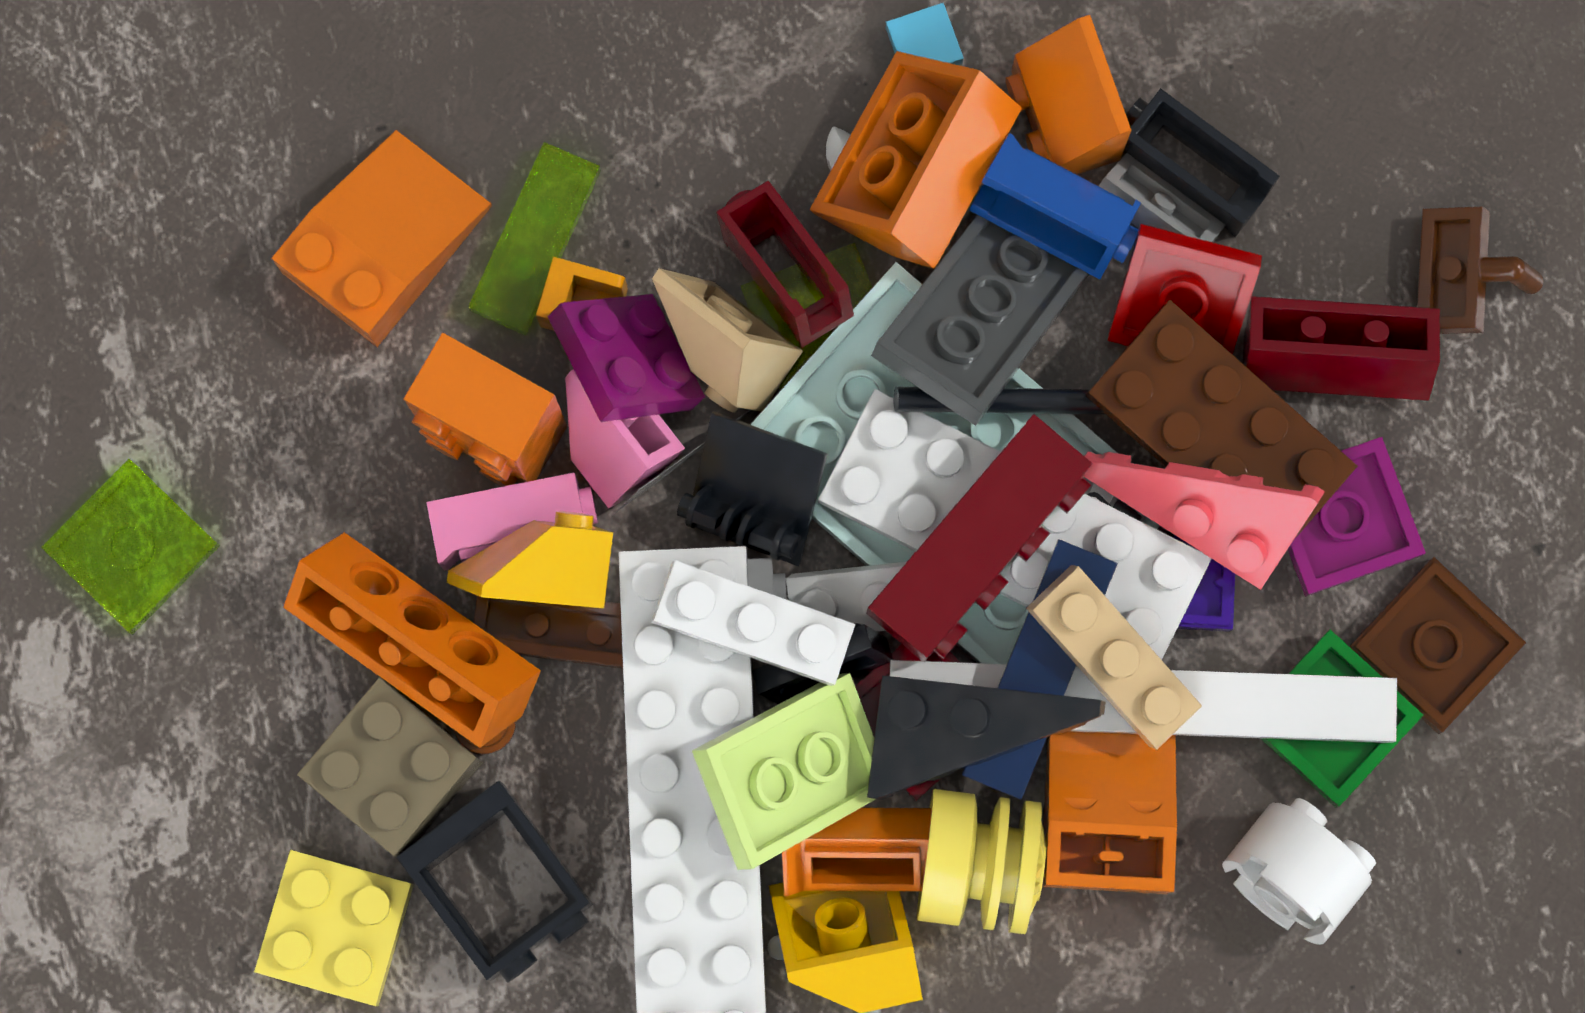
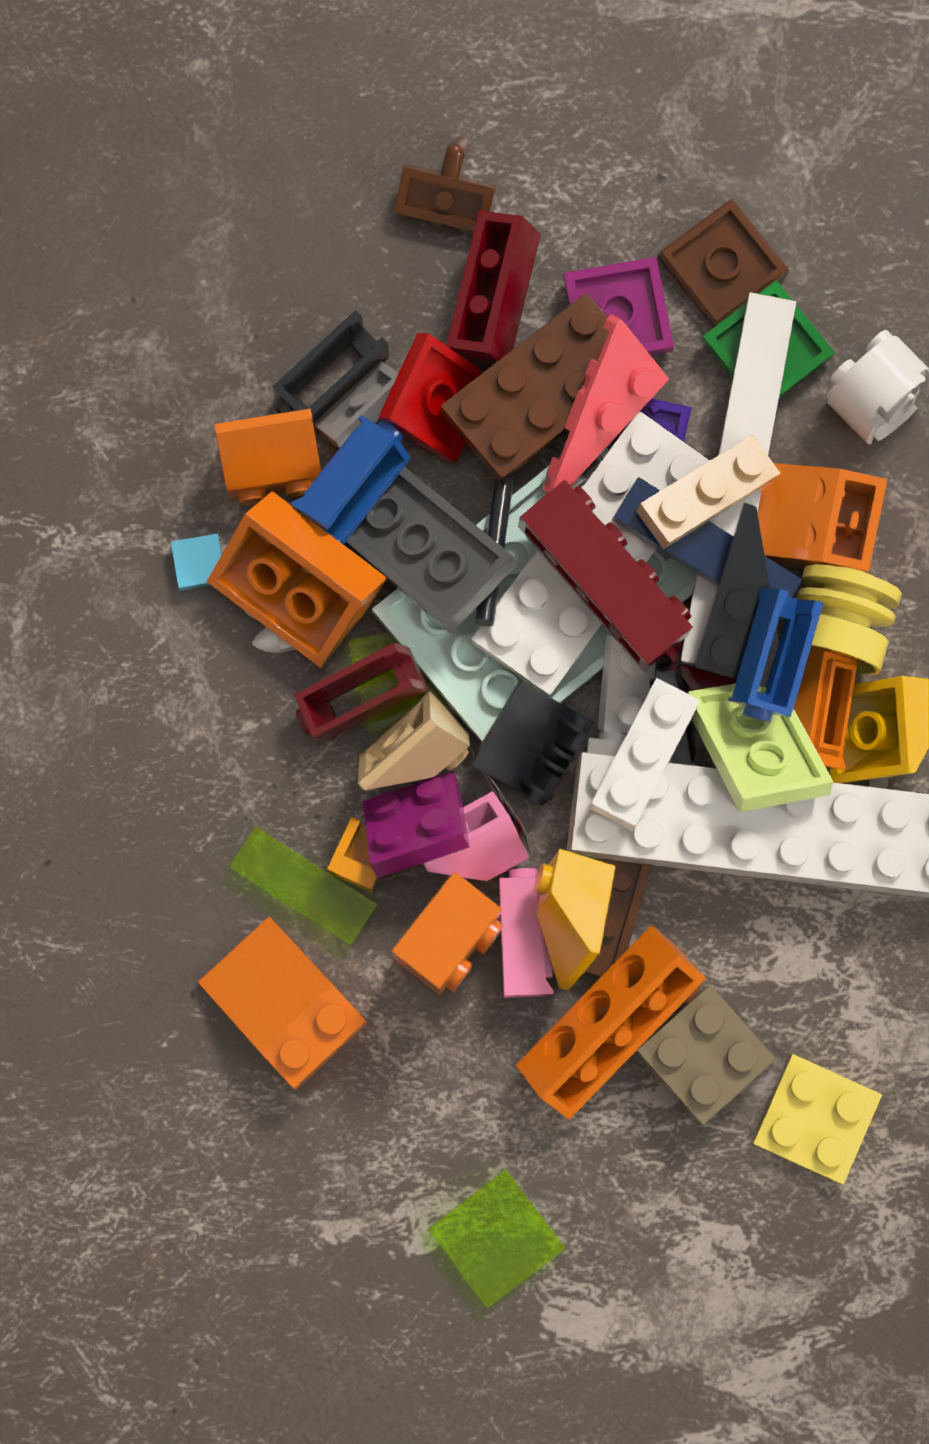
camera: 85 degrees left, 0 degrees up
(458, 831) = (859, 979): black window -> none
(842, 760) = (790, 658): none -> blue window

